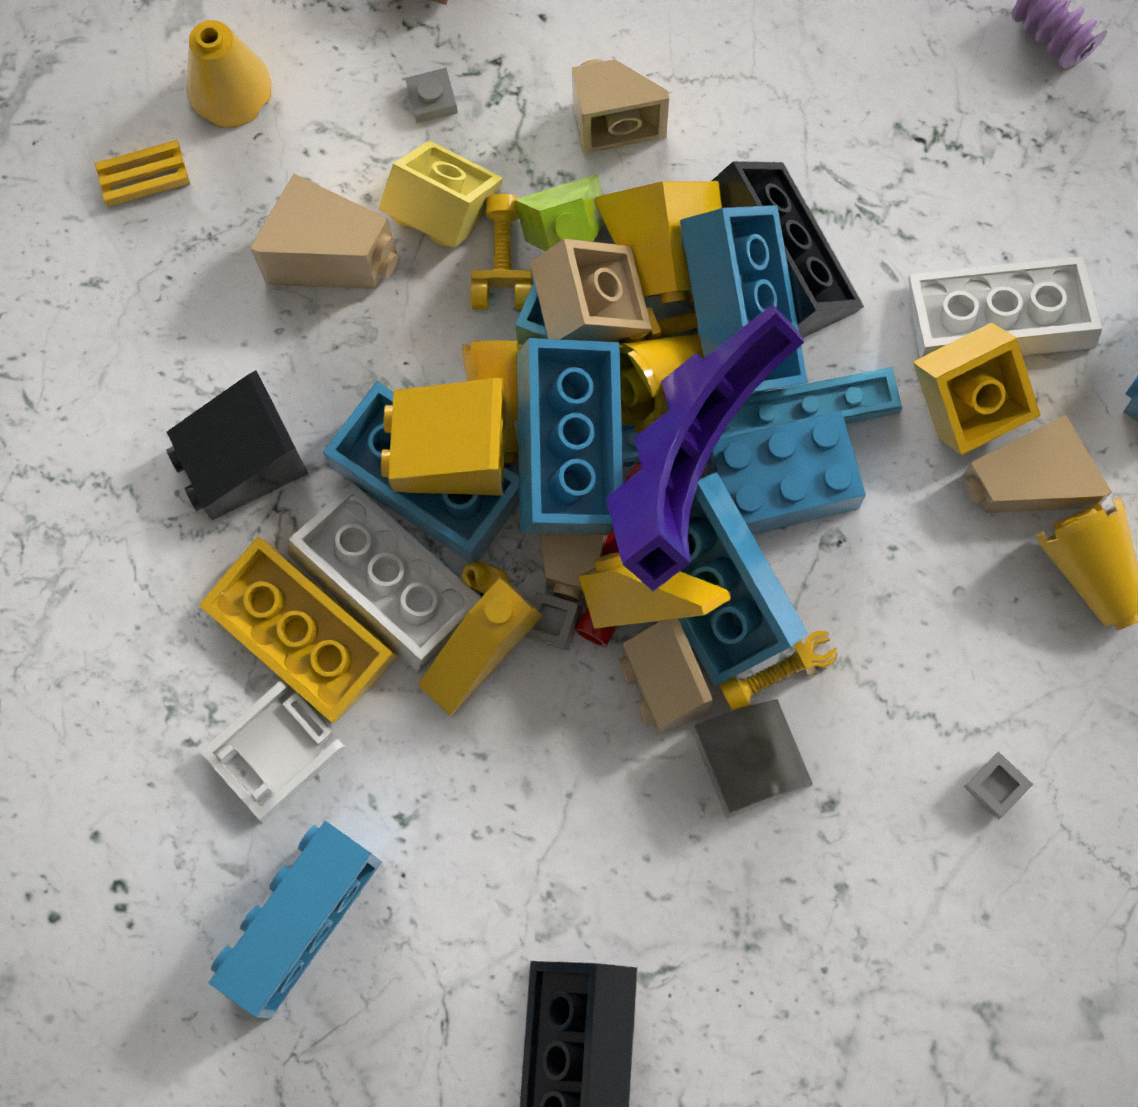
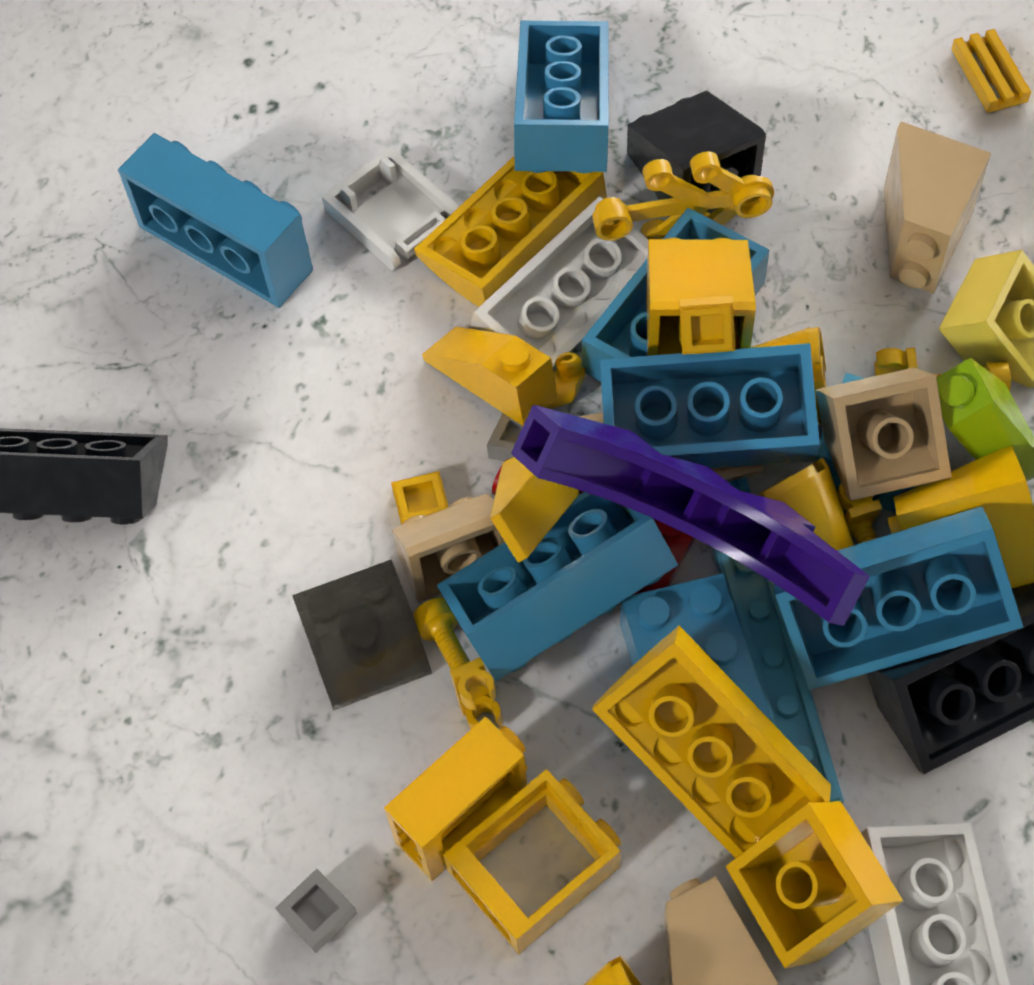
camera: 90 degrees right, 15 degrees down
(166, 569) = (562, 96): none -> dark azure brick
(310, 399) = (738, 196): none -> yellow plant
(514, 421) = (707, 325): none -> yellow tile
(609, 712) = (419, 495): none -> yellow tile
(871, 455) = (709, 743): none -> yellow slope
(912, 661) = (457, 794): none -> yellow window
(985, 586) = (565, 803): none -> yellow window

